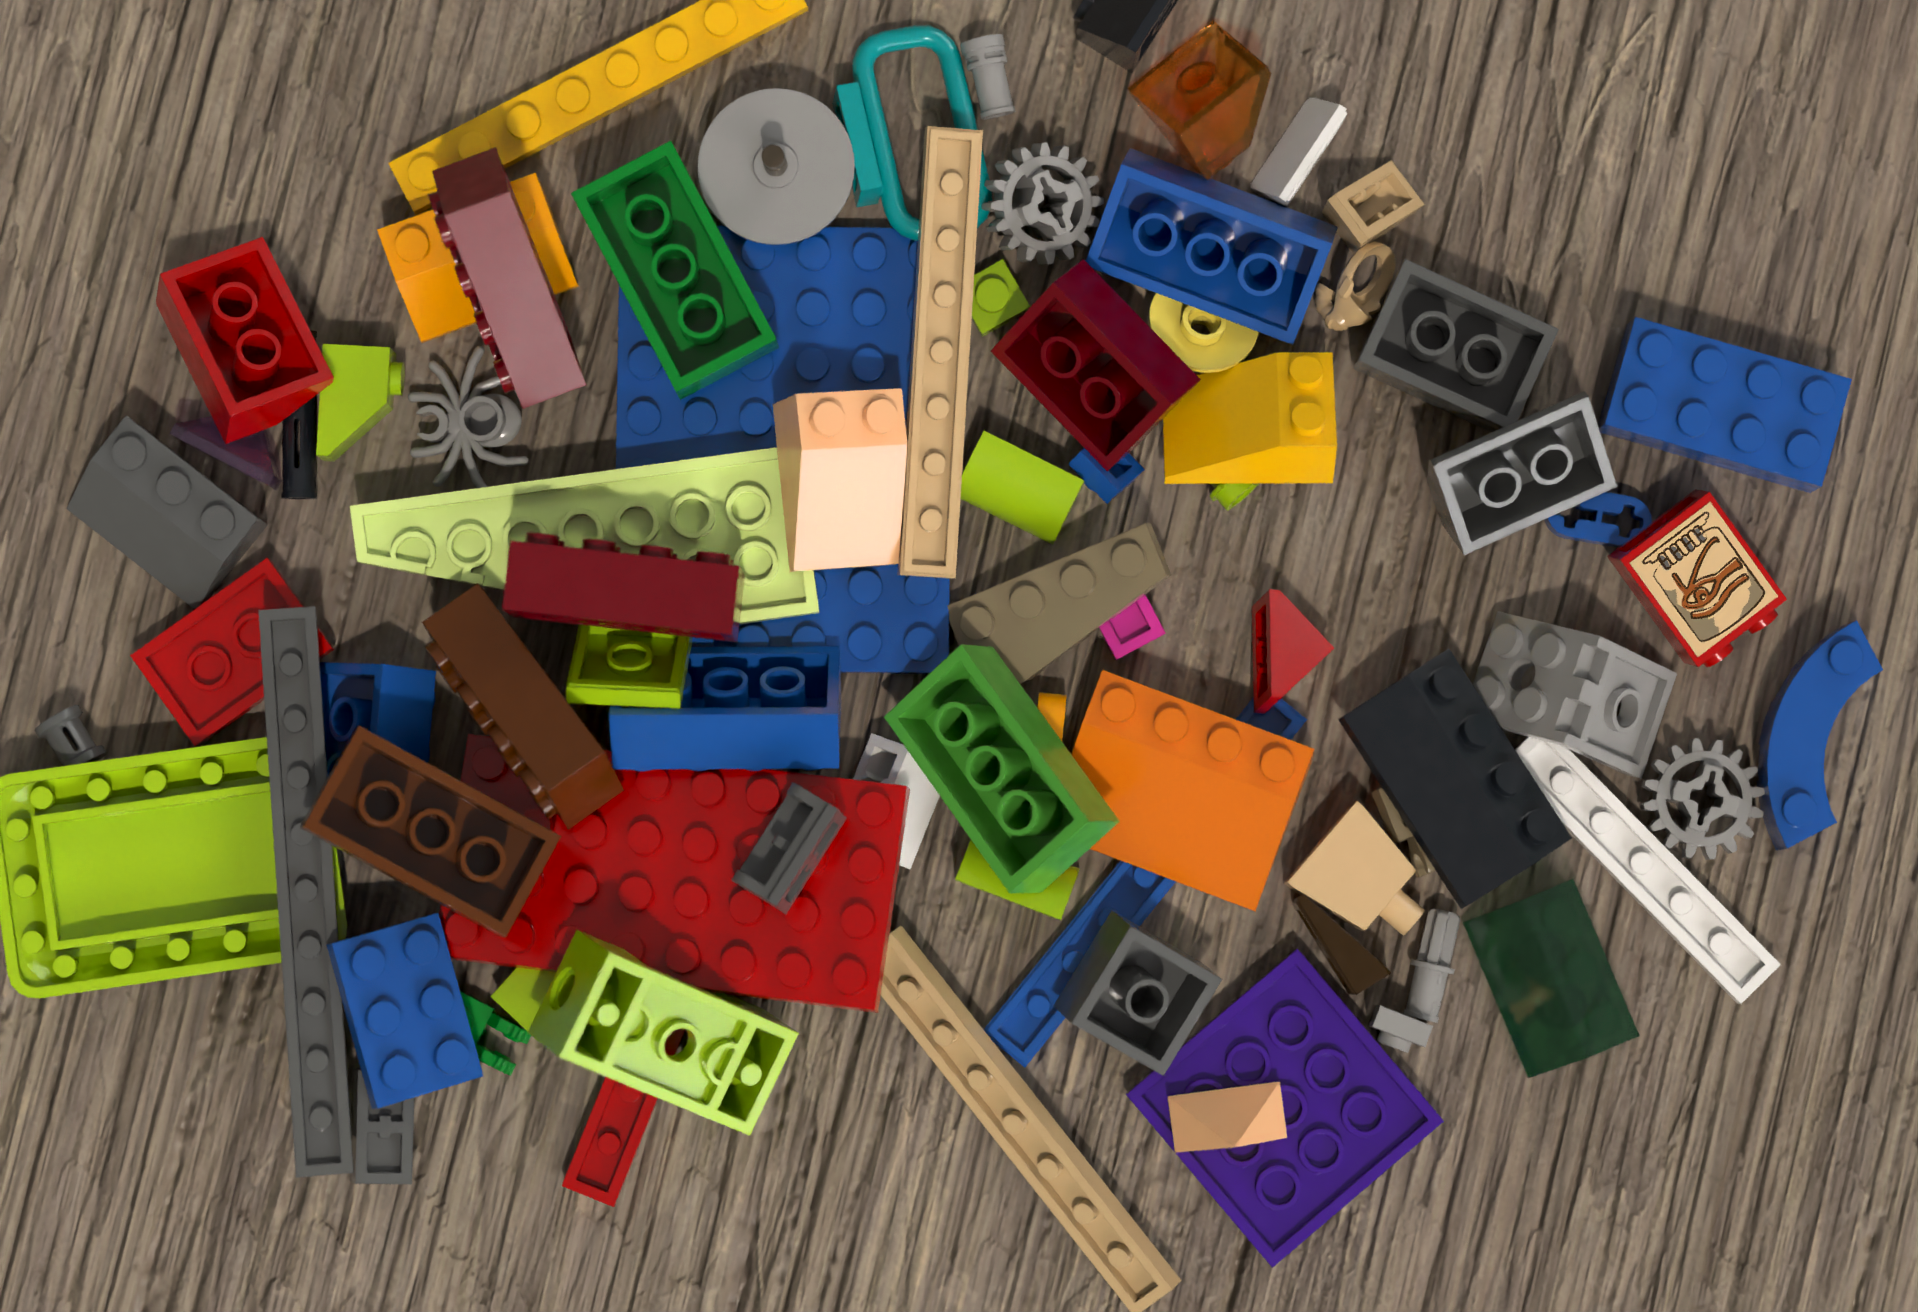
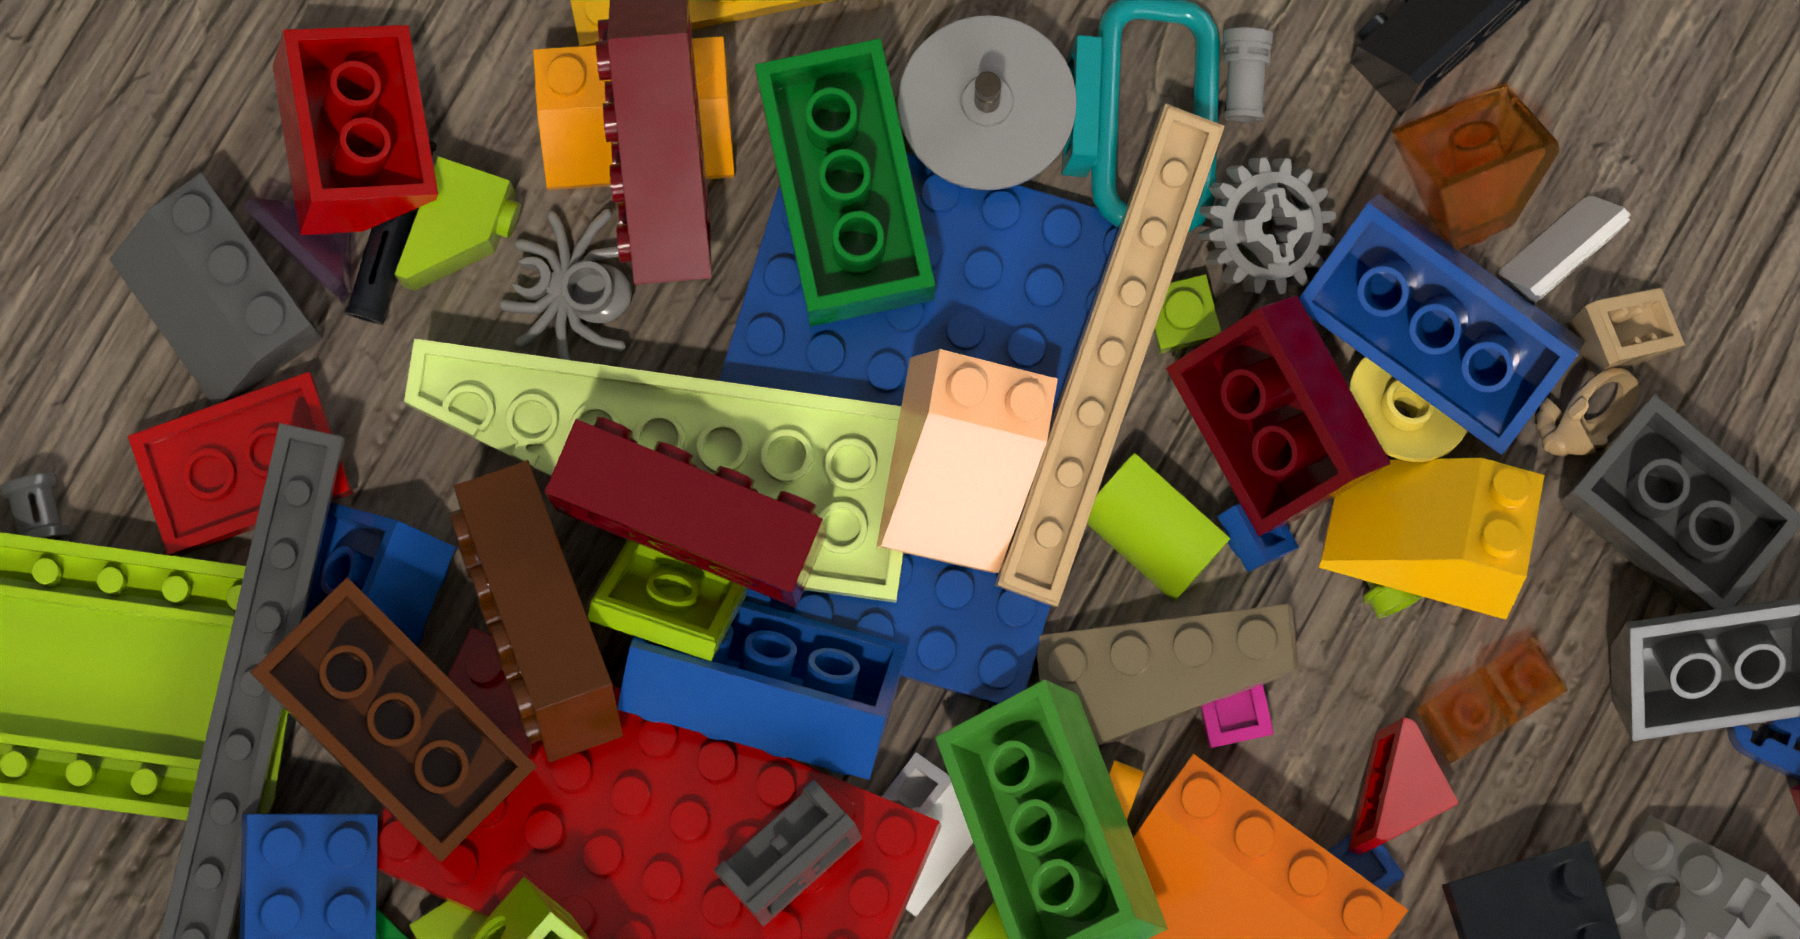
camera: 15 degrees right, 5 degrees down
(1340, 551) = (1491, 699): none -> clear orange slope

